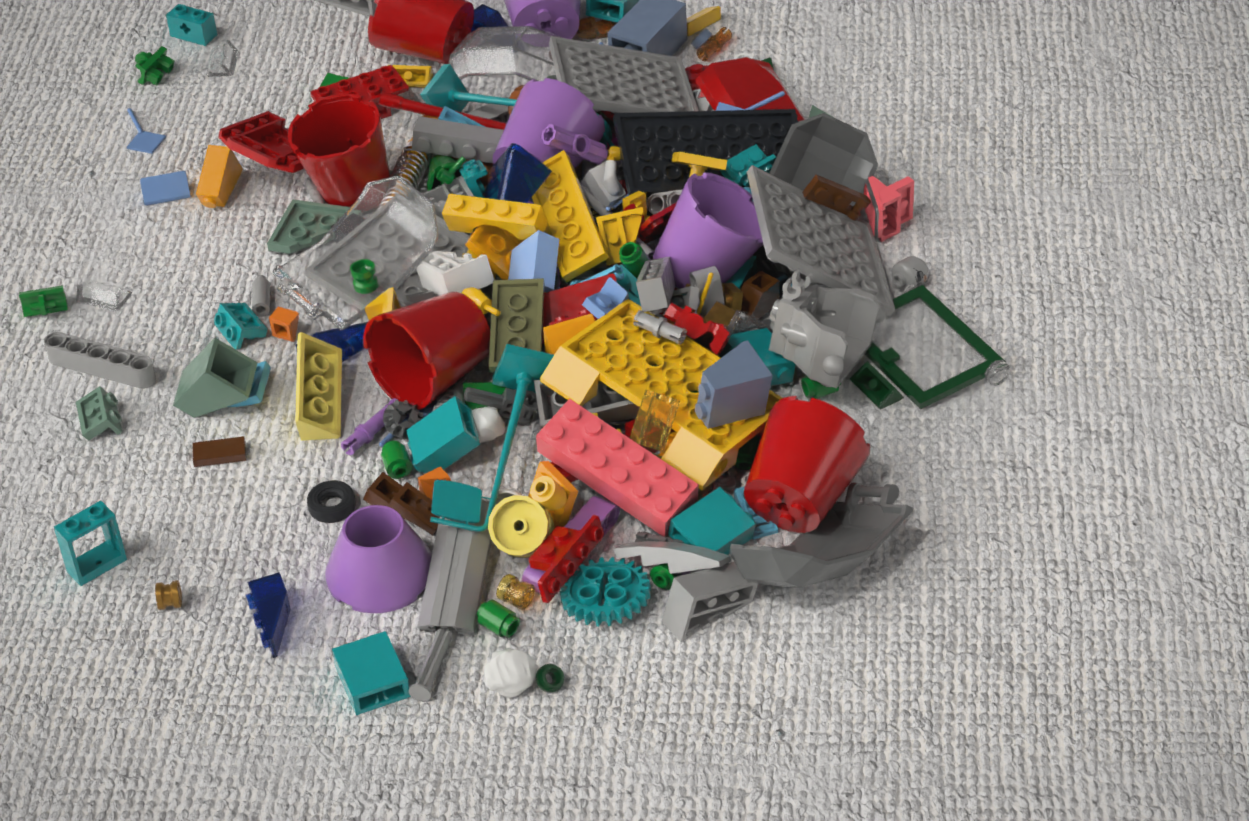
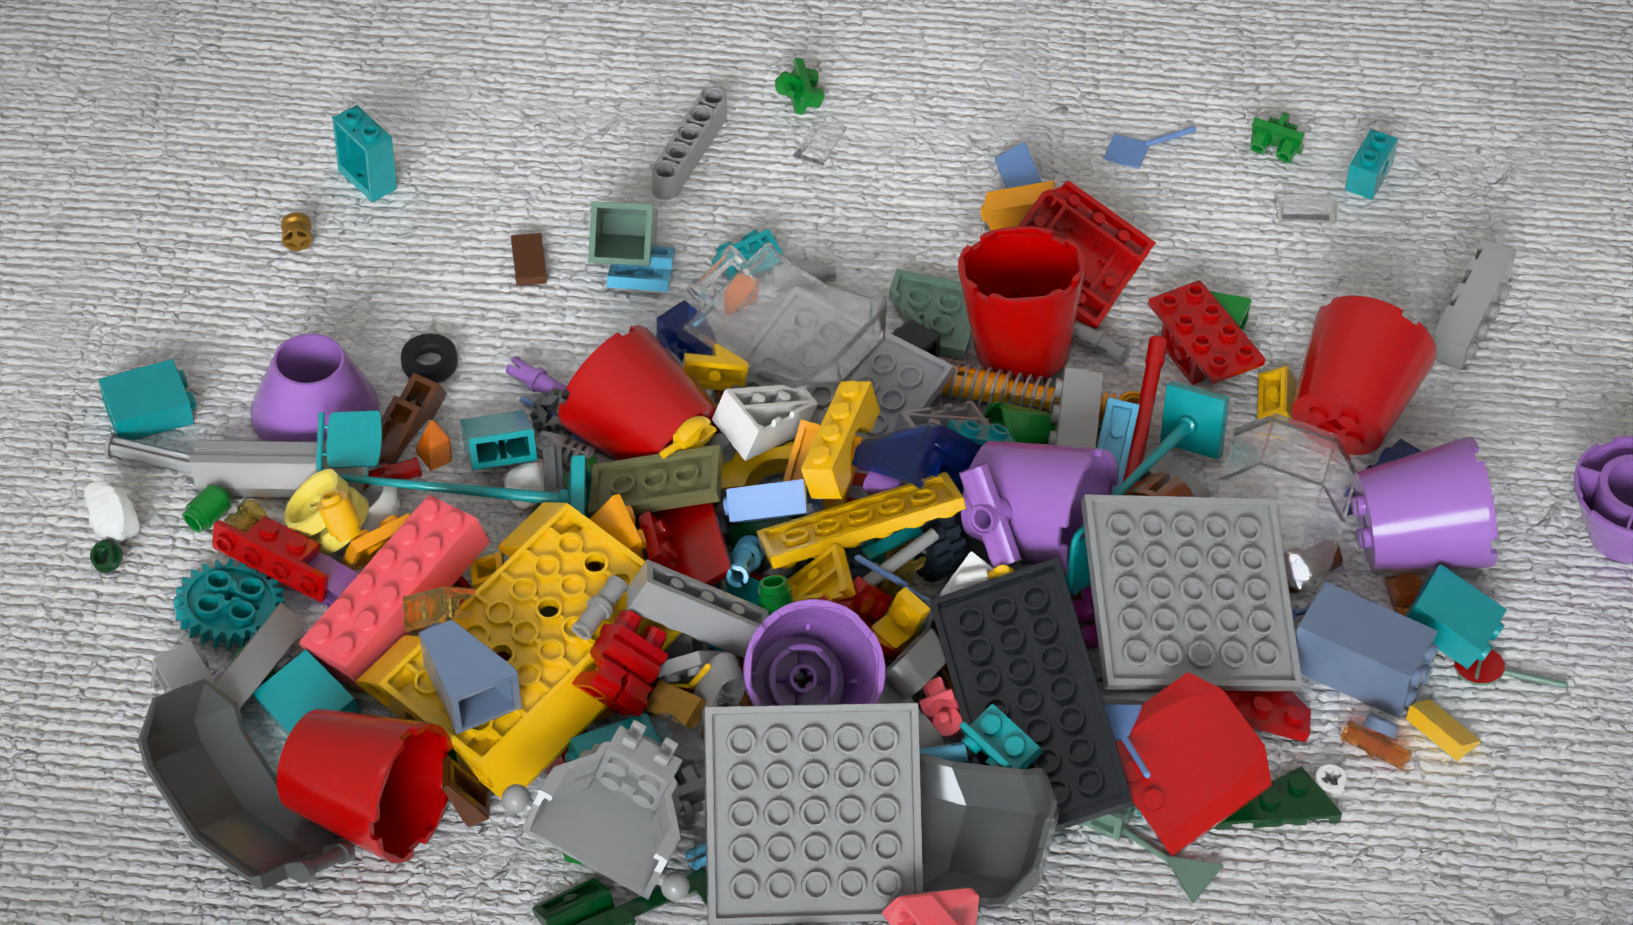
camera: 85 degrees right, 5 degrees up
(98, 412) = (599, 154): sand green bracket -> none
(272, 609) = (258, 315): clear blue slope -> none
(318, 389) = (585, 319): light yellow slope -> none
(364, 277) = (765, 335): green wheel -> none
(396, 460) = (483, 405): green brick -> none
(448, 176) = (990, 415): green hand -> none
(607, 299) = (663, 551): medium blue slope -> none
(699, 163) = (971, 665): yellow tile -> none
(836, 197) = (917, 844): reddish brown plate -> none

